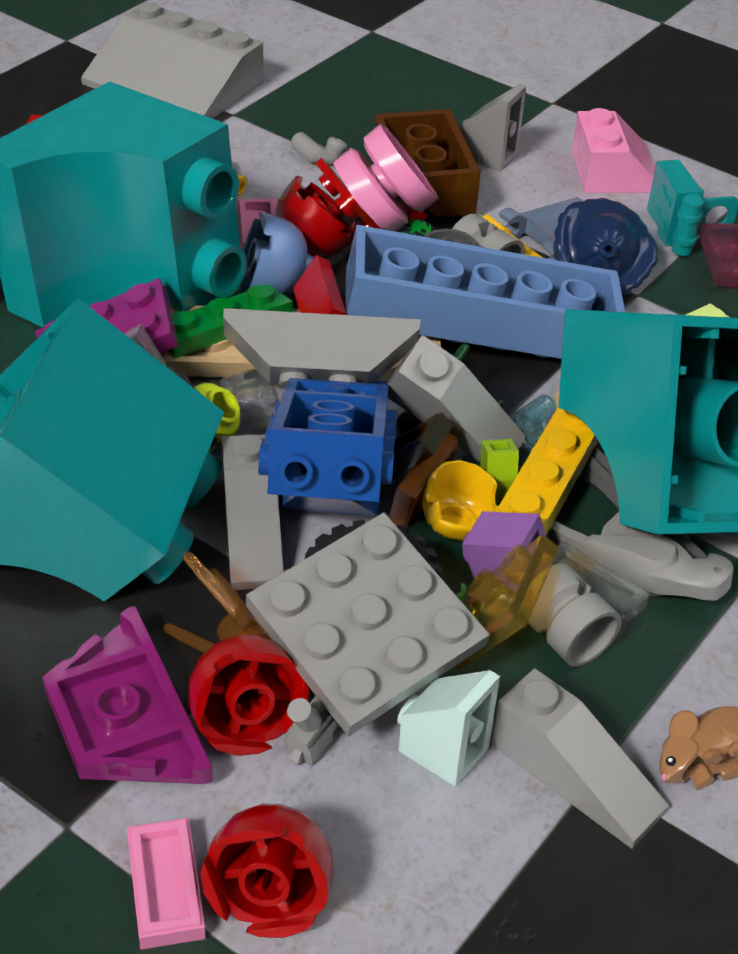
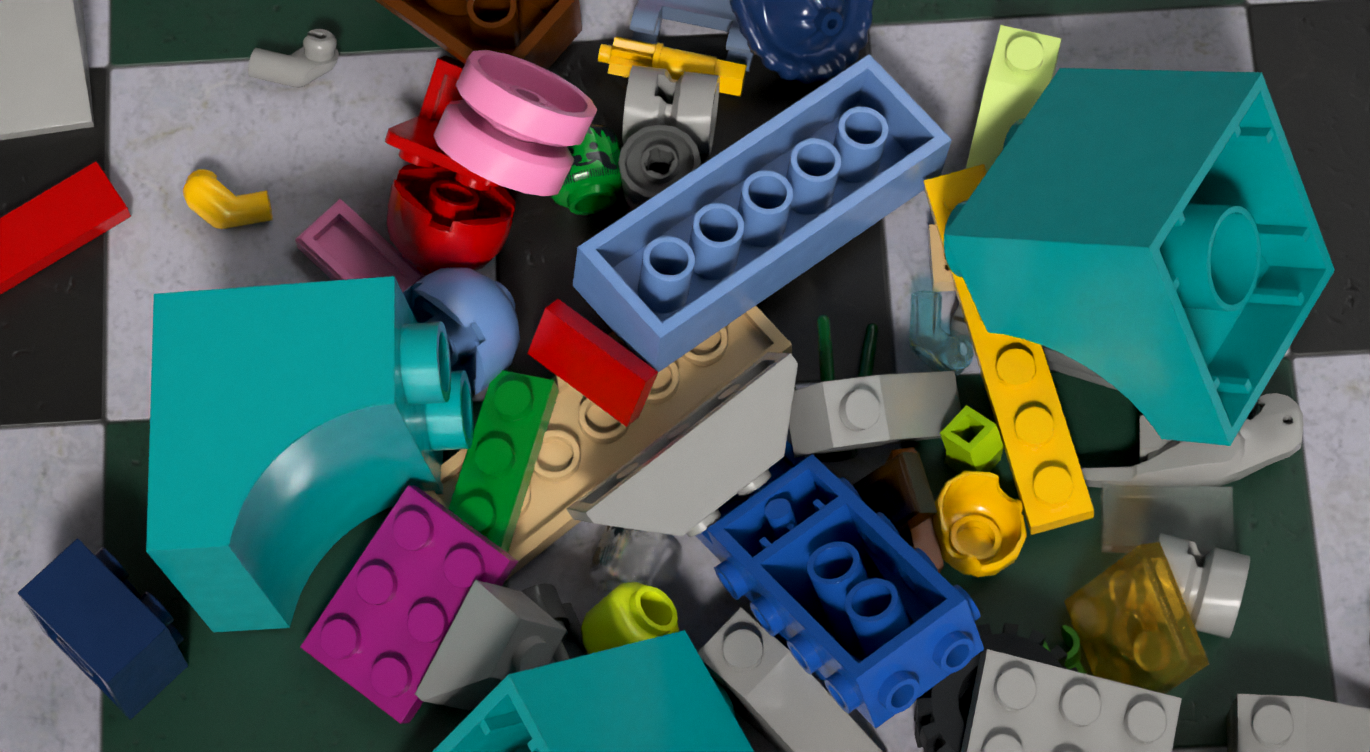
camera: 35 degrees left, 25 degrees up
(496, 535) = (1069, 550): medium lavender brick -> none

